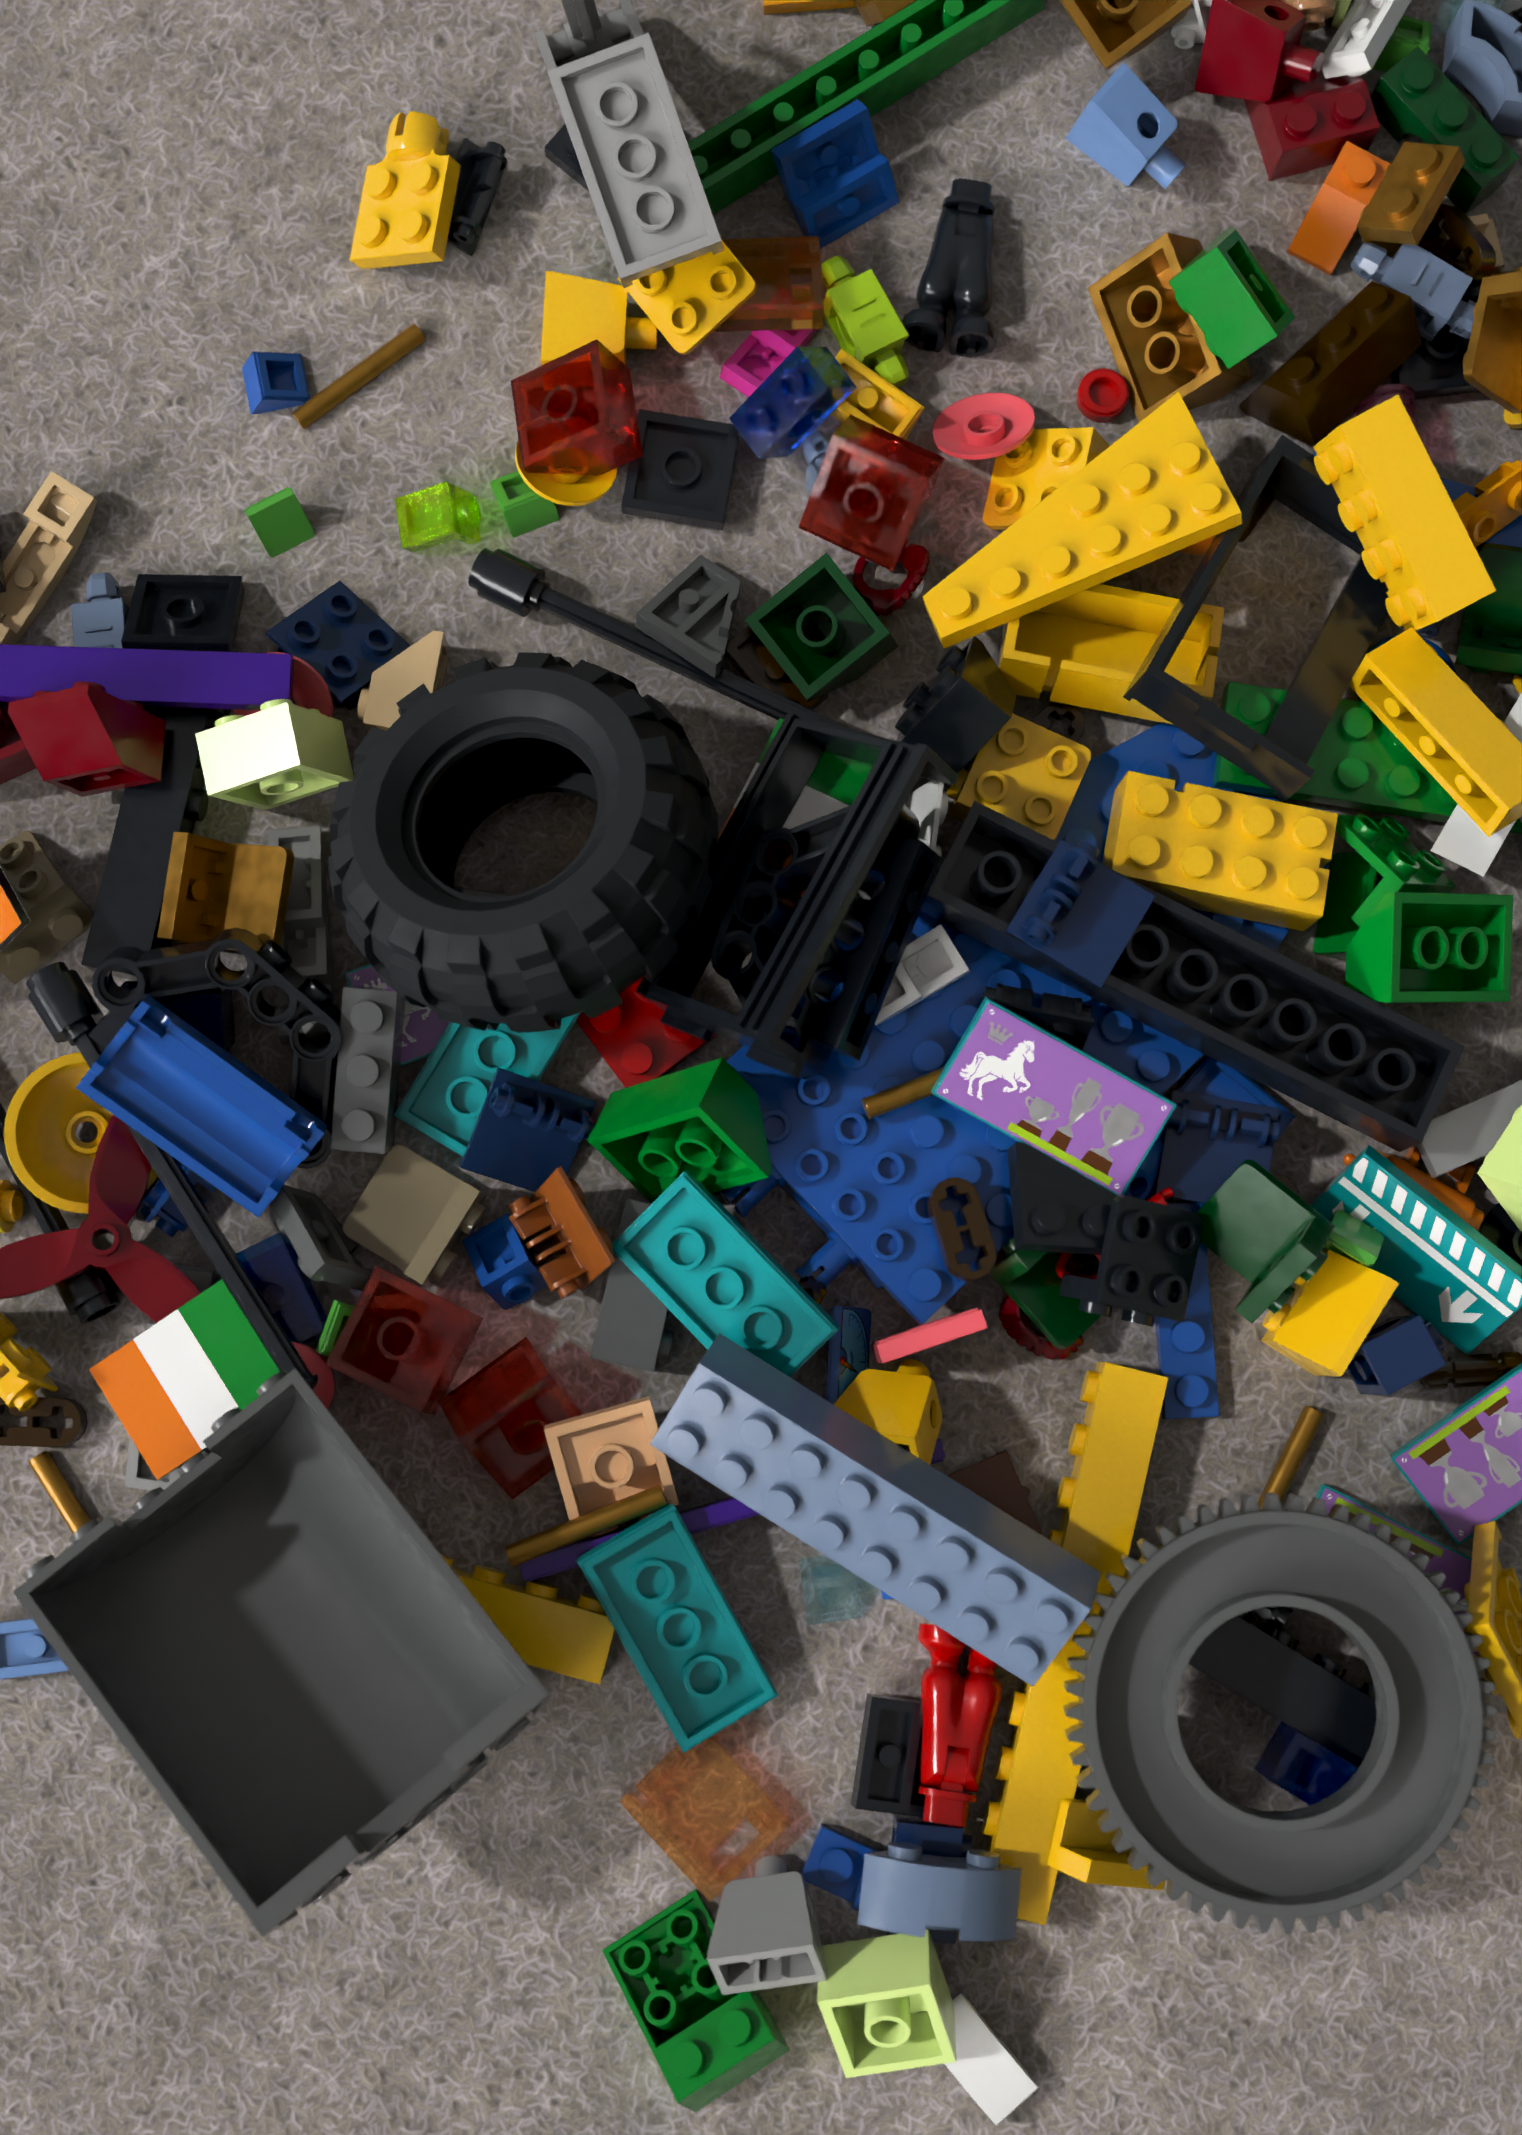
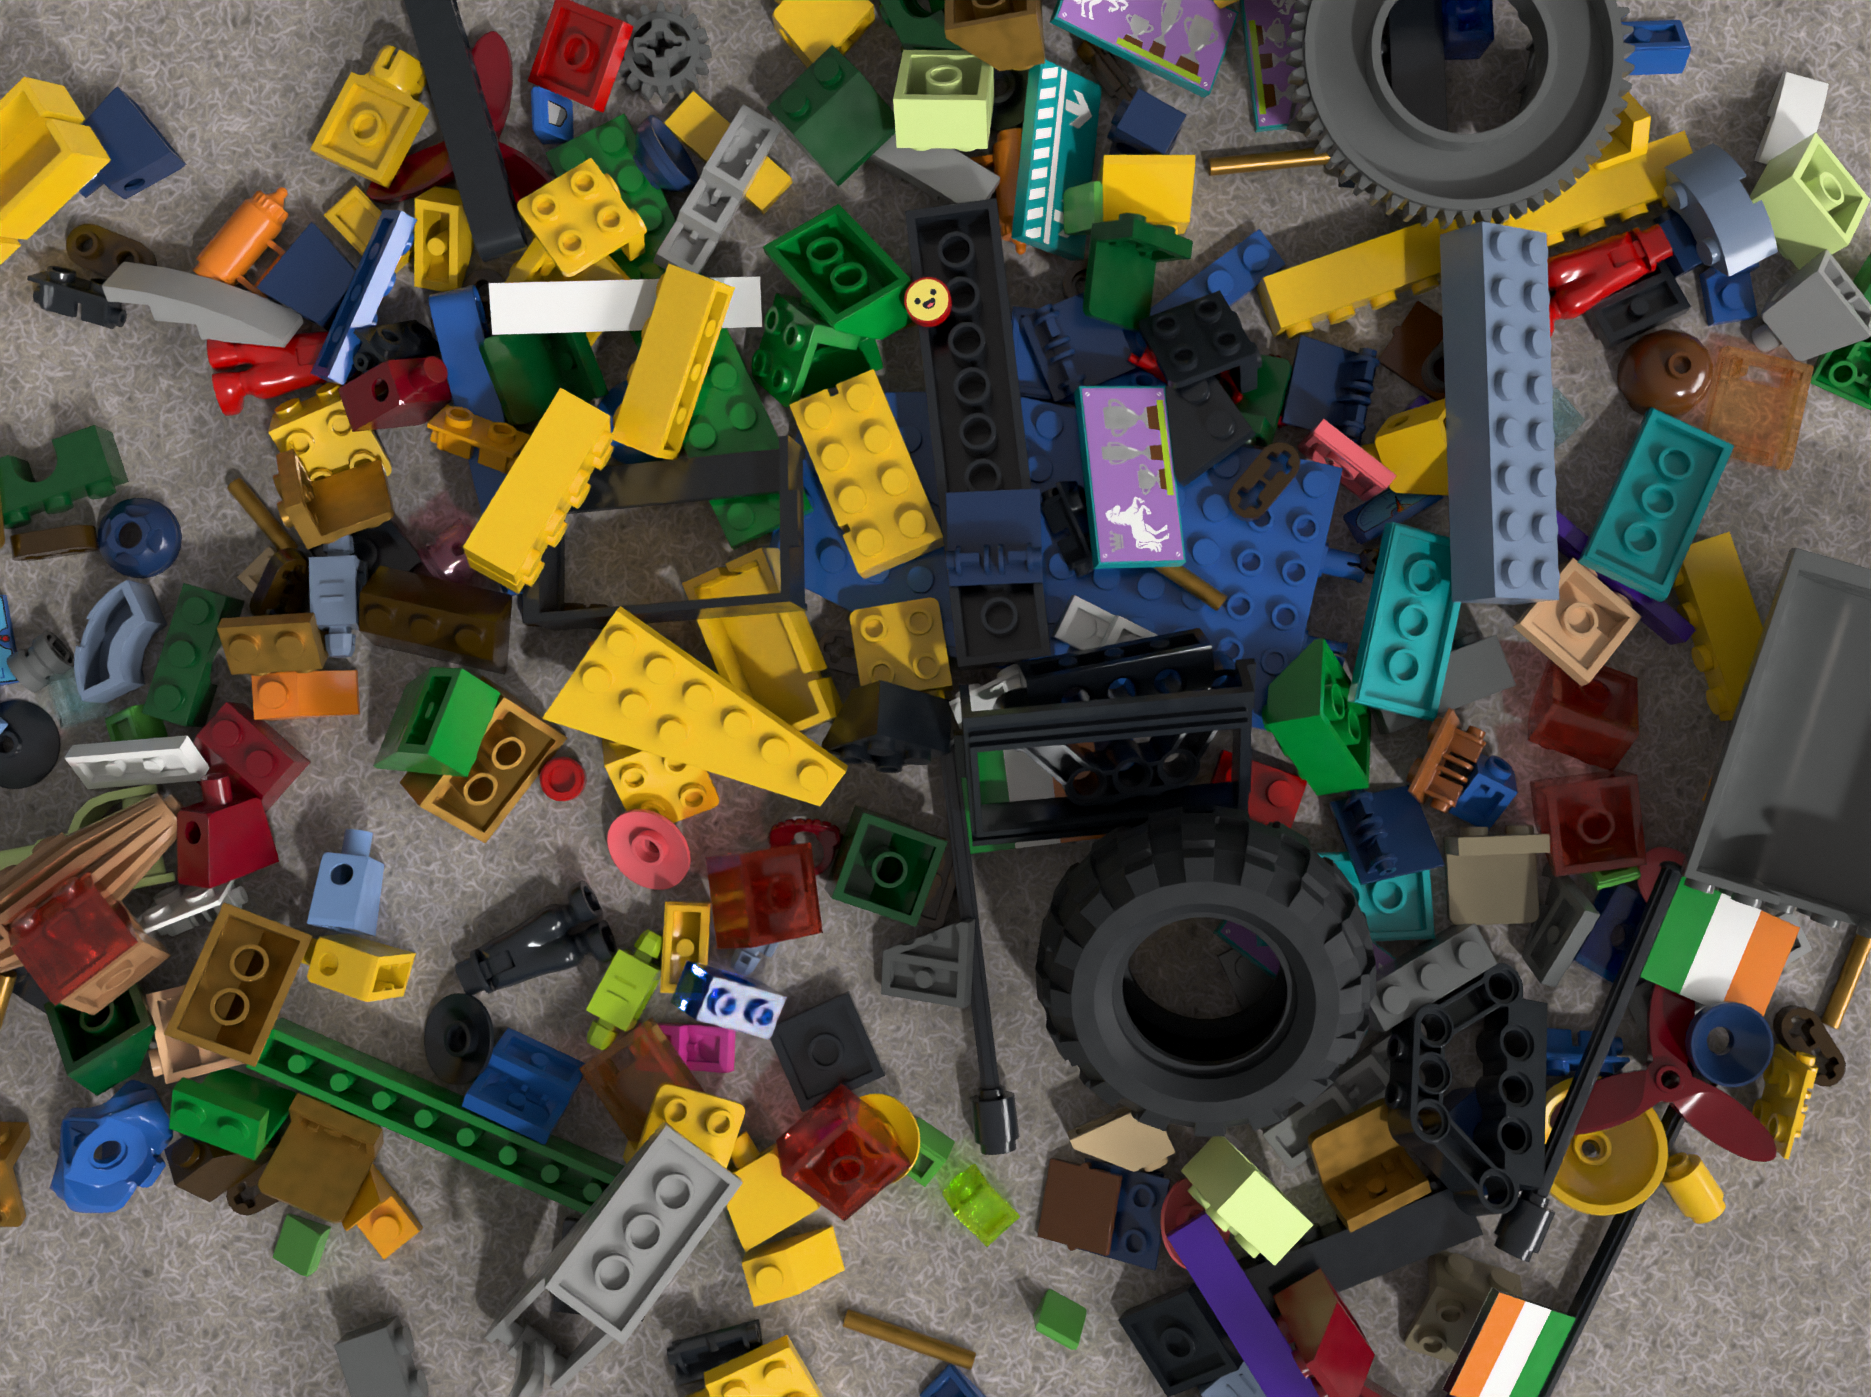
camera: 120 degrees left, 5 degrees up
(70, 1325) = (1748, 1046): none -> dark blue piece
(202, 1106) = (1536, 1073): blue gear -> none
(372, 608) = (1079, 1206): none -> reddish brown piece
(503, 309) = (791, 1265): none -> yellow slope
(586, 1525) = (1632, 610): pearl gold bar -> none
(802, 1739) = (1665, 372): none -> reddish brown cylinder
(919, 145) = (459, 1038): none -> black dish
(1008, 1376) = (1330, 386): none -> dark blue hinge
(1046, 97) = (358, 967): none -> yellow torso
(1159, 1952) = (1659, 47): none -> blue slope
(1358, 1004) = (928, 301): none -> light yellow tile

